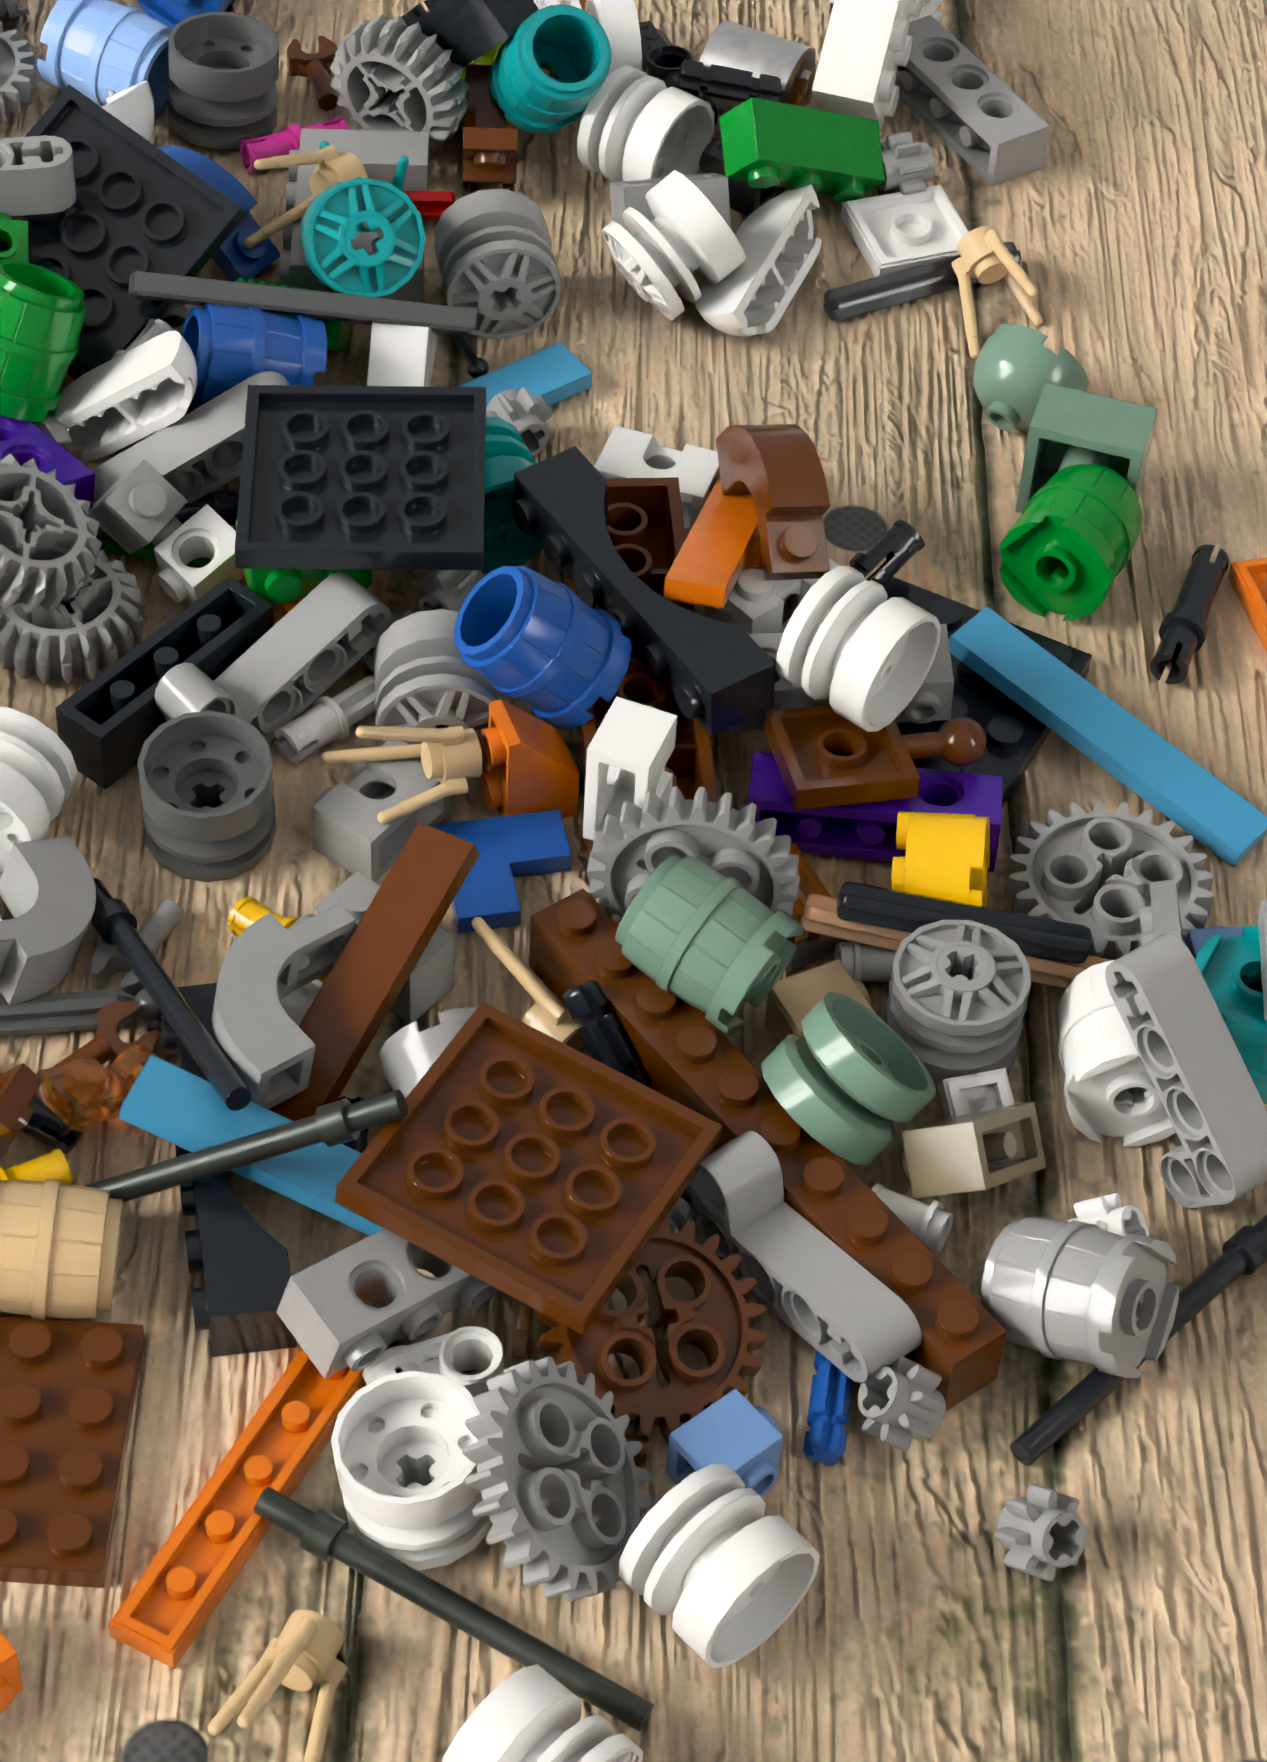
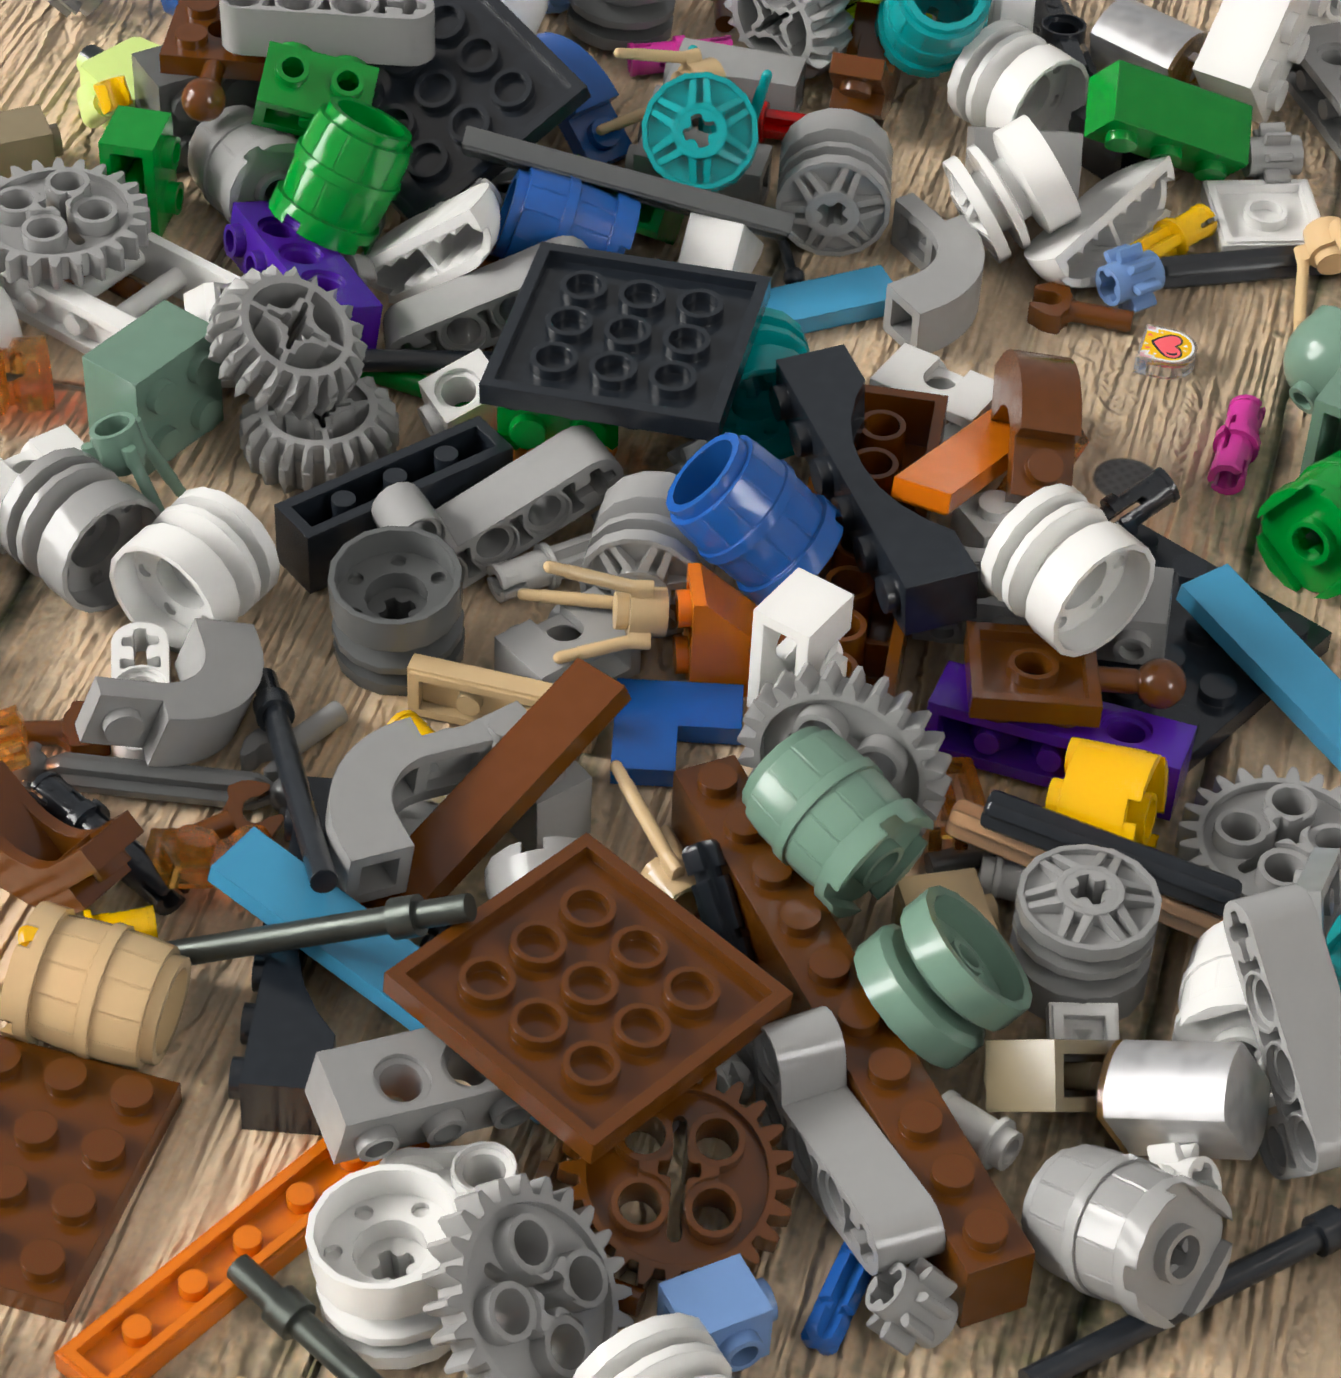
camera: 15 degrees right, 5 degrees down
(139, 508) = (413, 342): light grey brick -> none
(307, 868) = (466, 692): none -> tan tile
(526, 414) = (819, 321): light grey gear -> none
(629, 373) = (944, 297): none -> light grey arch
(727, 82) = (1106, 49): black axle -> none
(738, 360) = (1055, 307): none -> reddish brown bar
(805, 318) = (1130, 277): none -> medium blue gear
(830, 268) = (1176, 235): none -> yellow axle
(856, 390) = (1165, 353): none -> tile
(950, 475) = (1236, 444): none -> dark pink pin
(1094, 1150) = (1184, 1095): none -> flat silver piece

